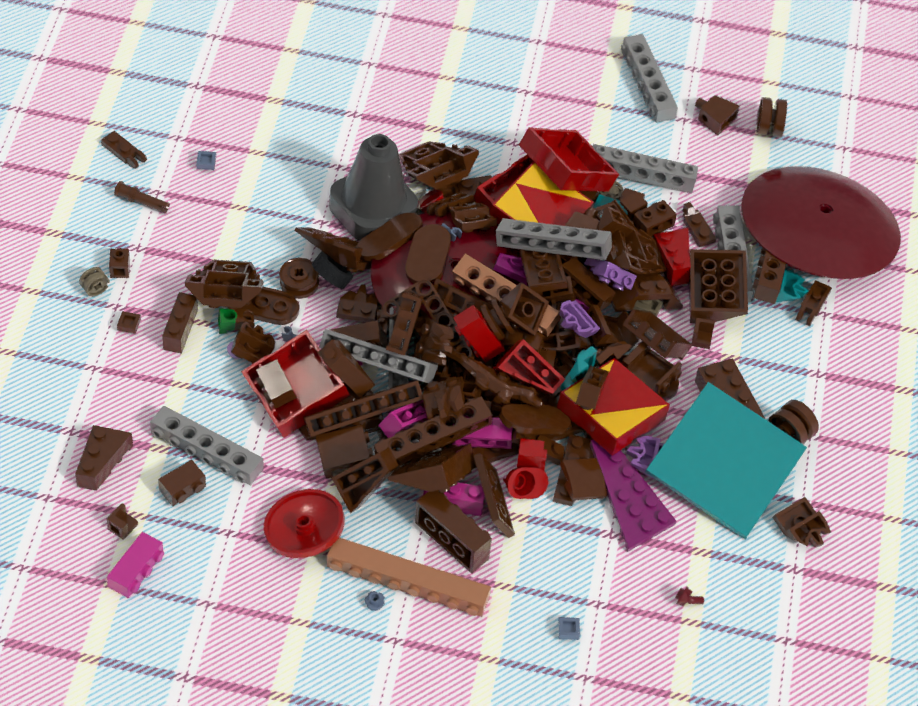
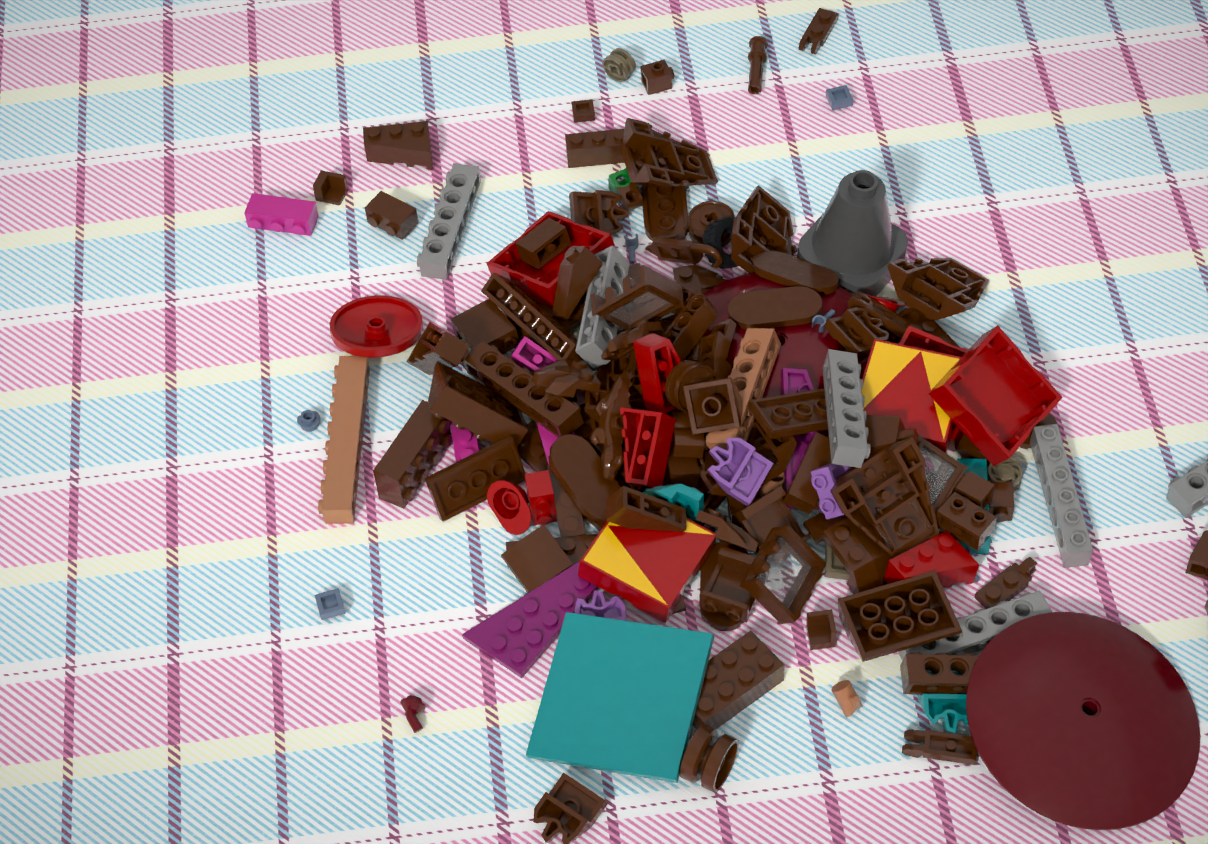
camera: 80 degrees right, 0 degrees up
(324, 301) = (682, 251): none -> reddish brown plate
(762, 338) = (846, 697): none -> nougat piece

